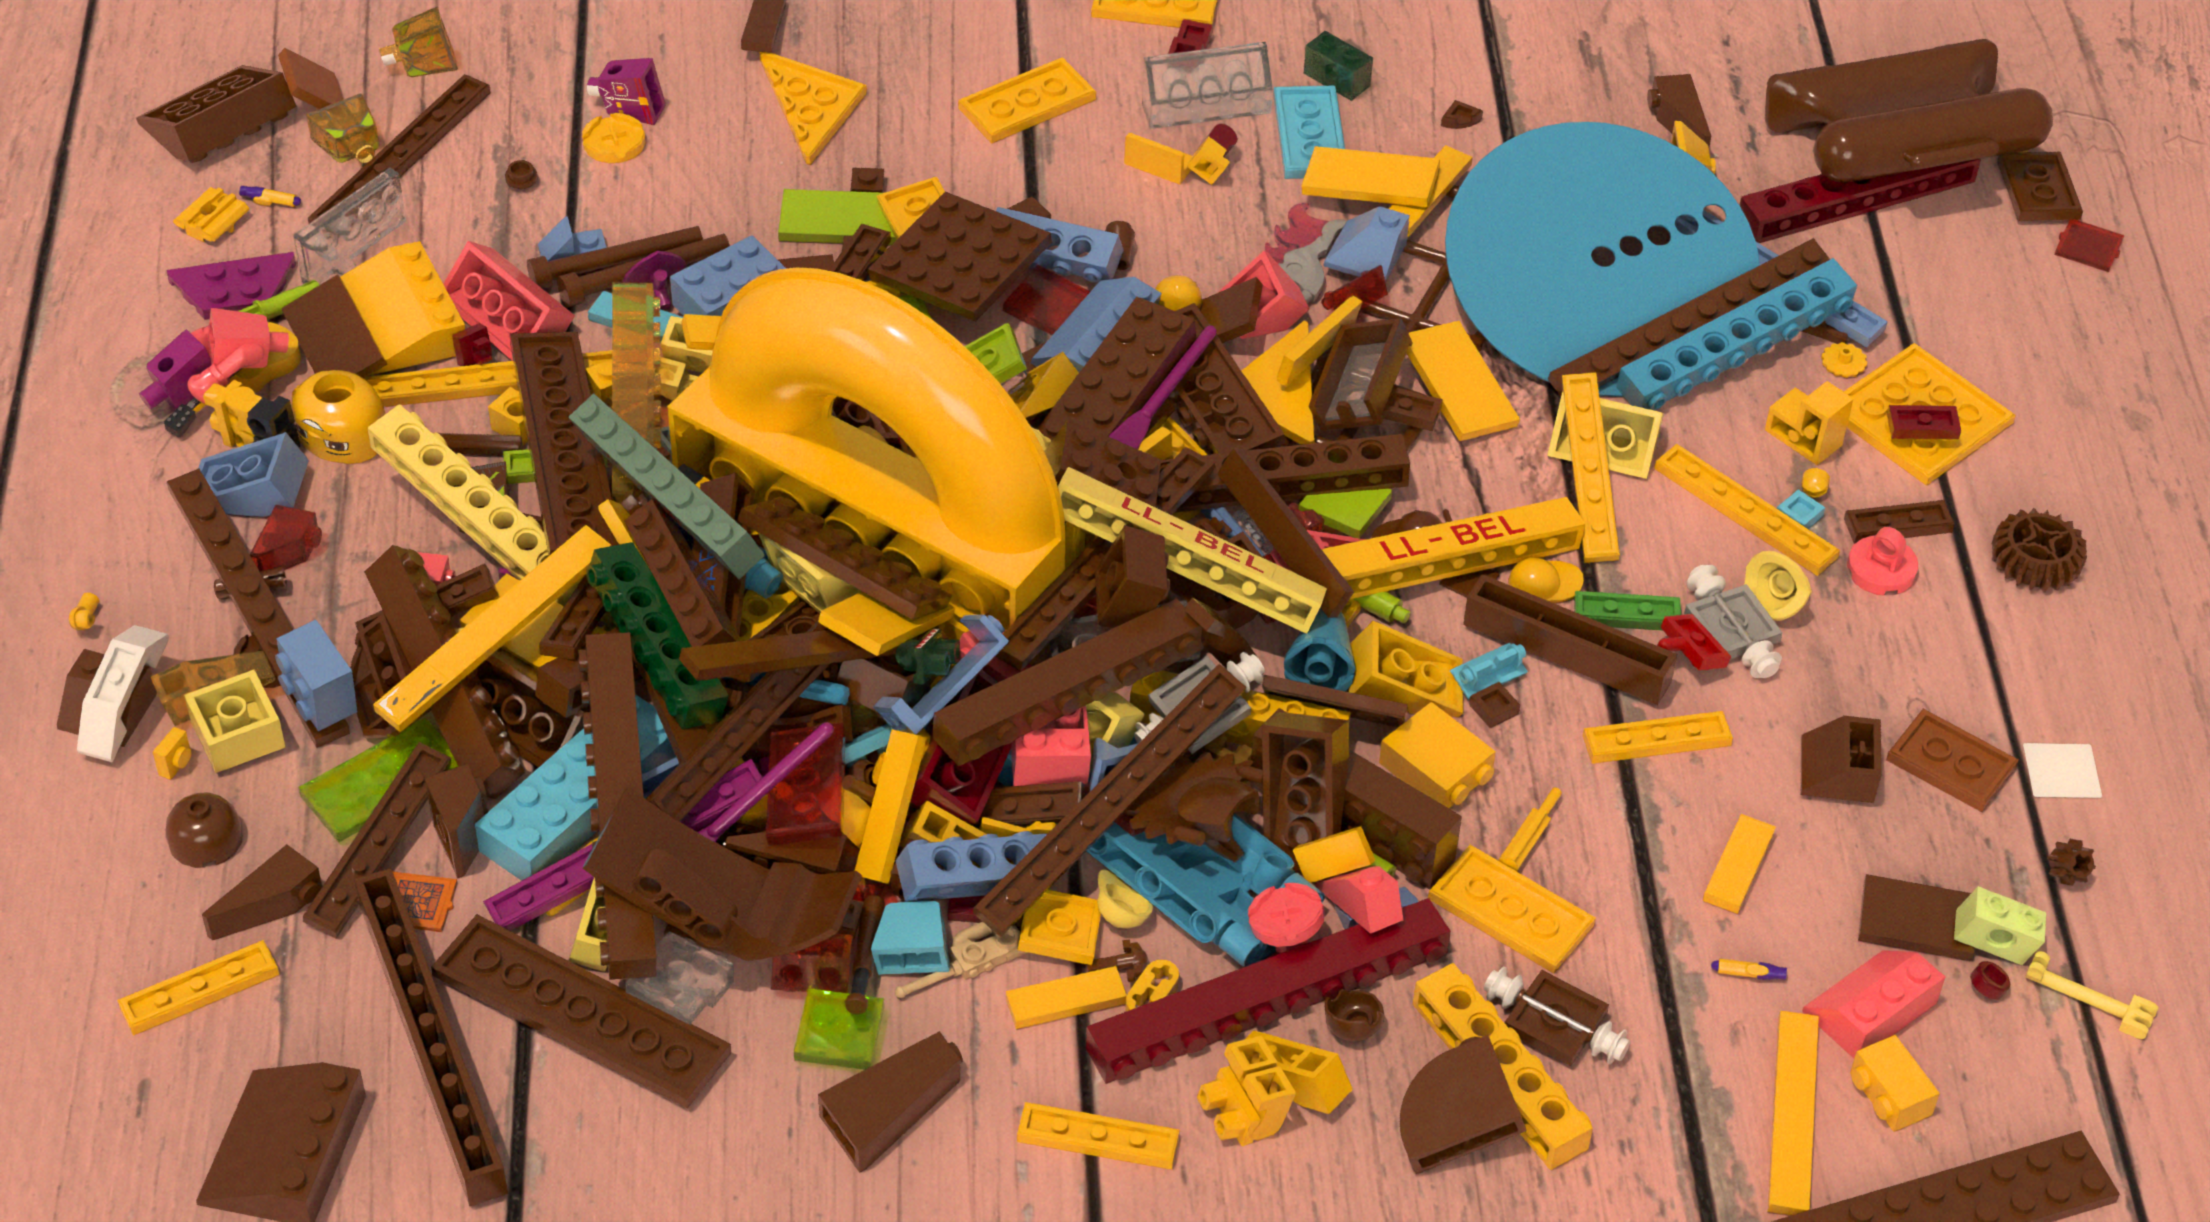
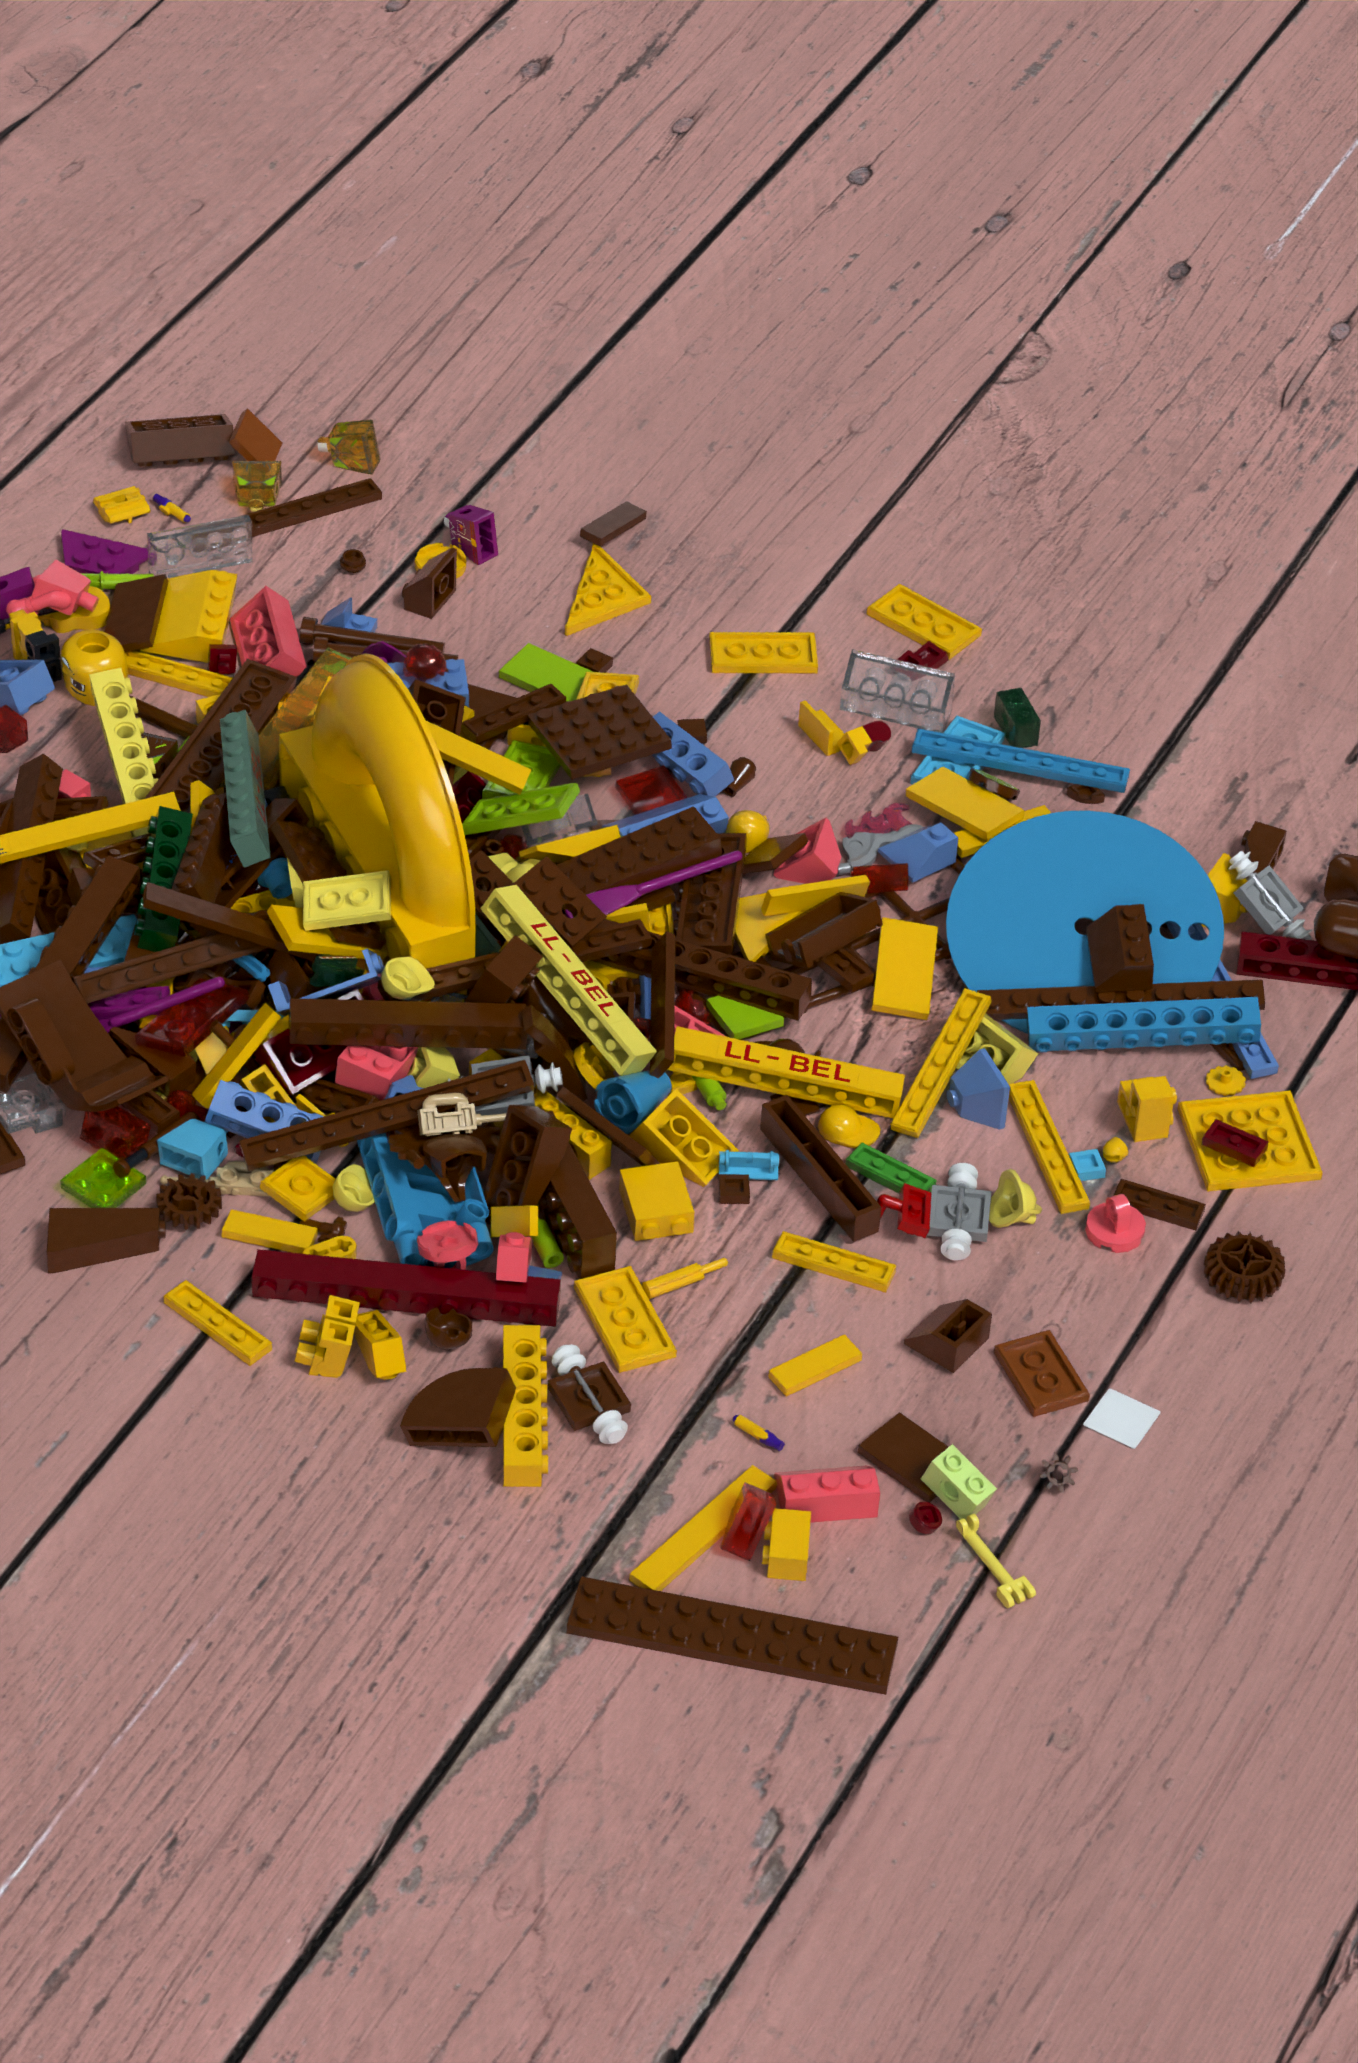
camera: 30 degrees right, 5 degrees down
(632, 166) = (432, 585): none -> reddish brown slope
(725, 257) = (424, 662): none -> clear red hair
(902, 567) = (347, 900): none -> light yellow tile
(954, 1004) = (189, 1201): none -> reddish brown gear
(1029, 630) = (406, 978): none -> light yellow cap
(1196, 765) = (462, 1119): none -> tan piece
(1257, 635) = (592, 1064): none -> yellow tile
(1377, 144) = (993, 784): none -> reddish brown tile
(1378, 108) = (1021, 760): none -> dark azure tile
(1652, 479) = (980, 1091): none -> medium blue slope
(1668, 265) = (1121, 950): none -> reddish brown slope
(1741, 152) = (1268, 898): none -> light grey plate
(1840, 1077) = (748, 1521): none -> clear red slope

